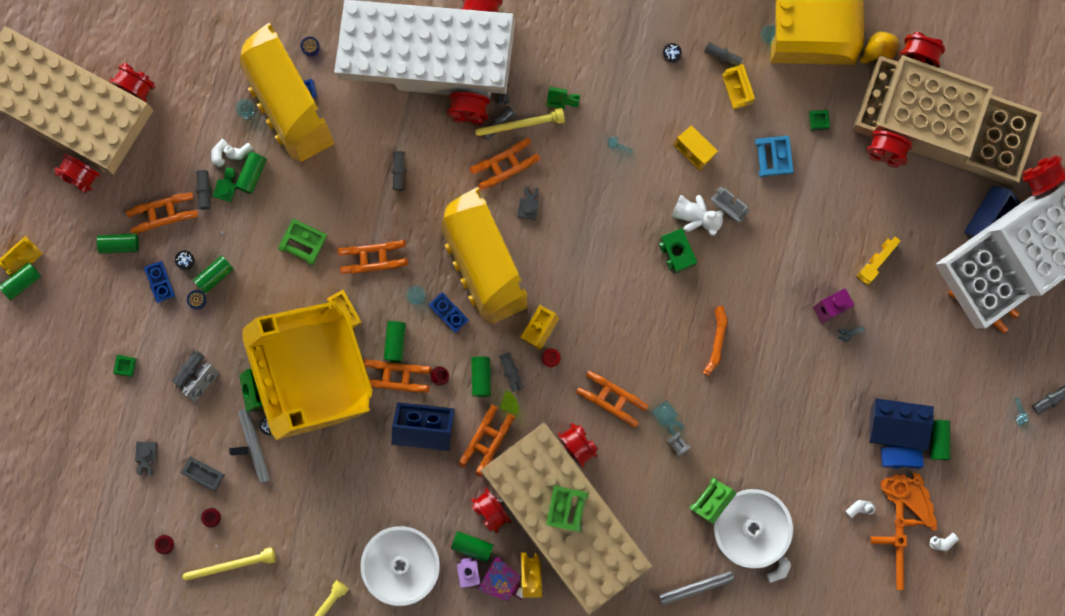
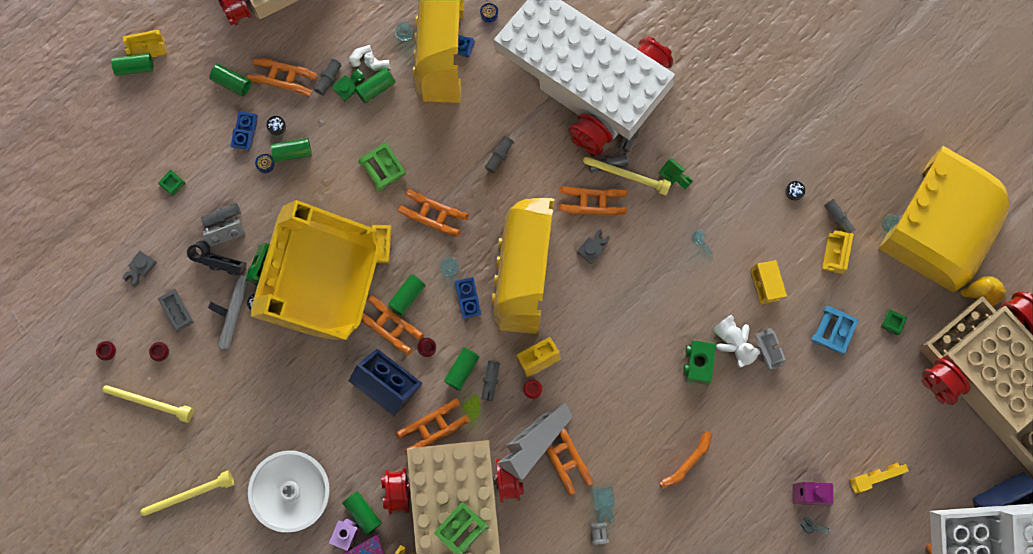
camera: 30 degrees right, 5 degrees down
(209, 411) = (215, 261): none -> black plate
(580, 400) = (534, 441): none -> light grey wedge

